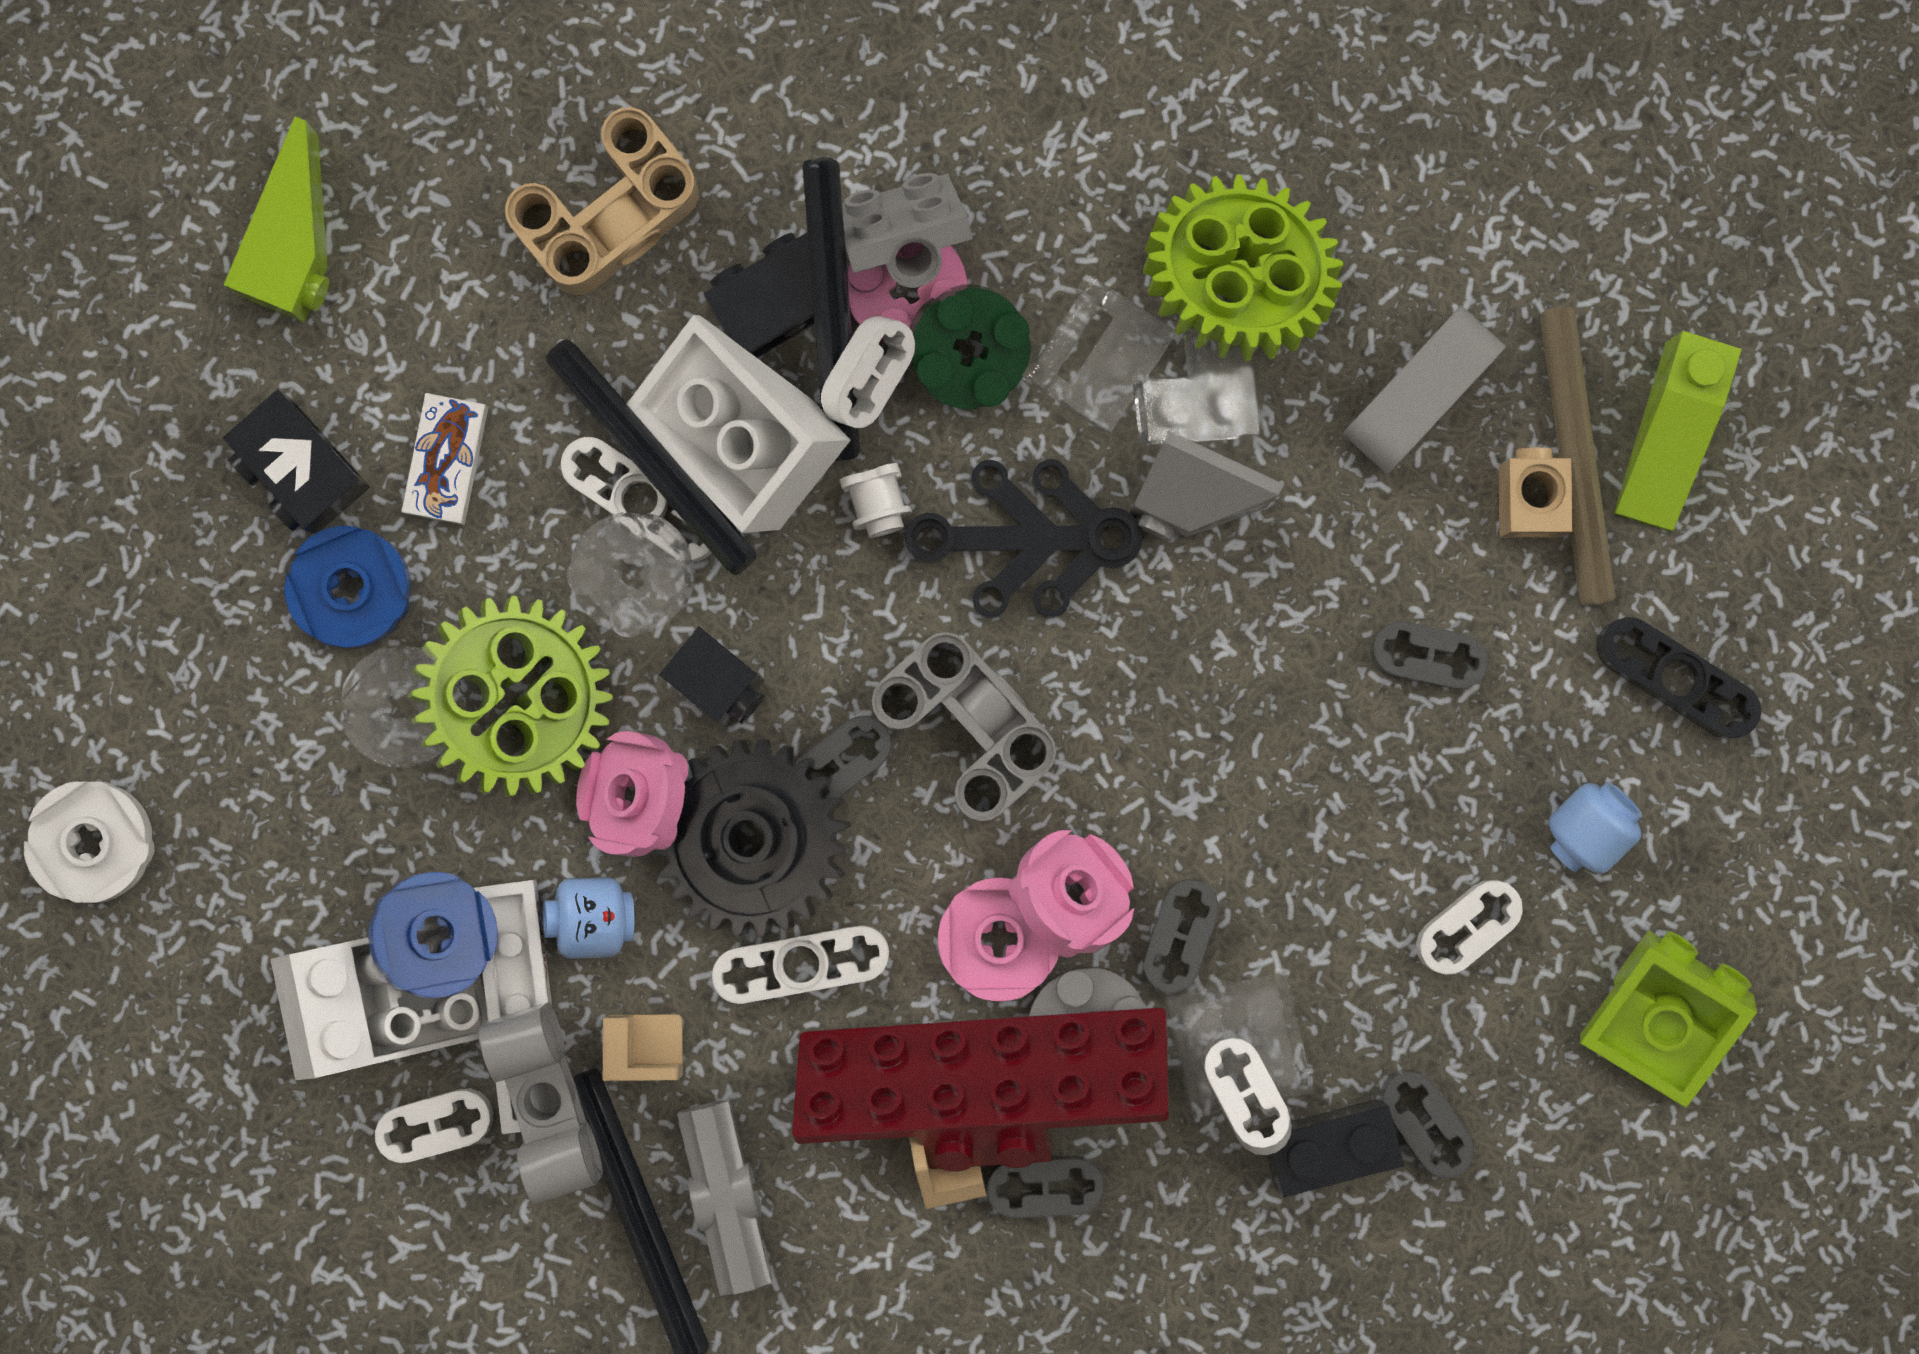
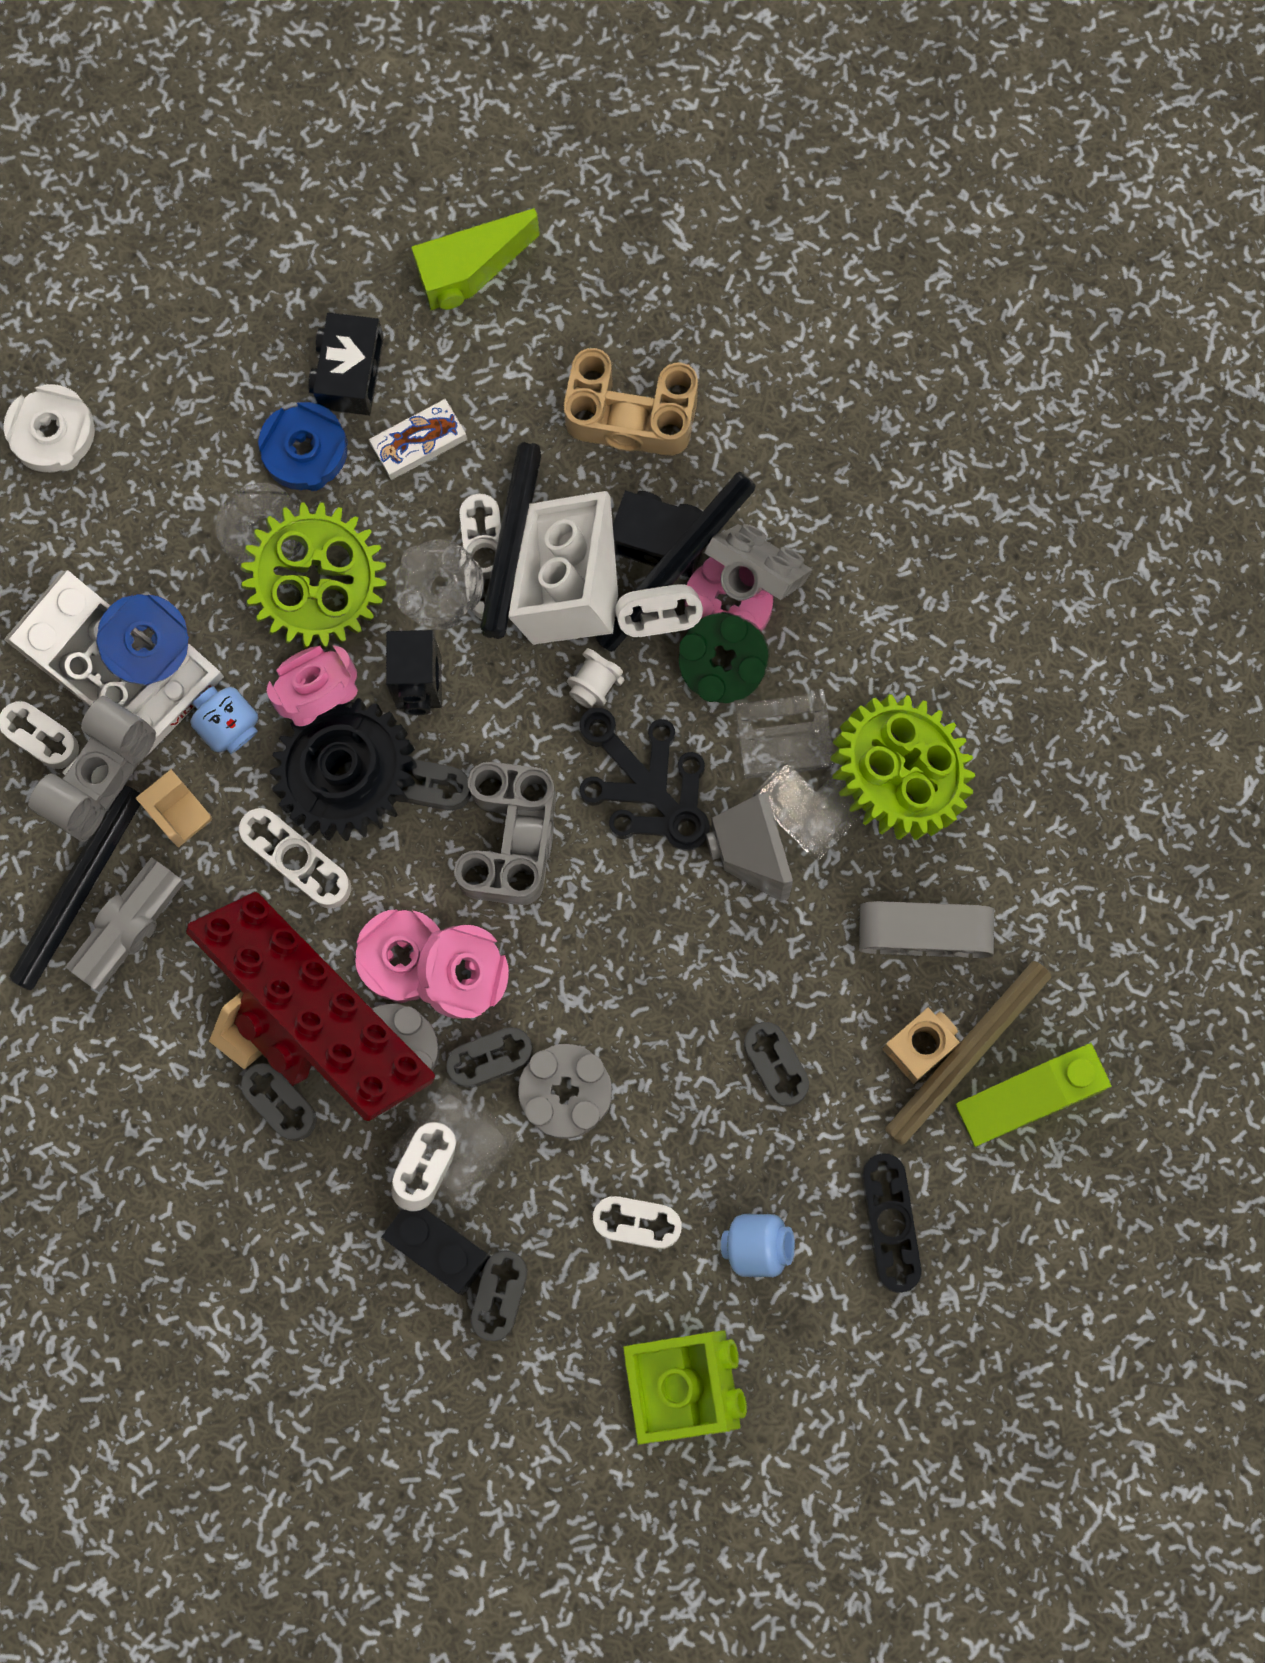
camera: 60 degrees right, 10 degrees down
(1313, 890) = (544, 1108): none -> light grey plate

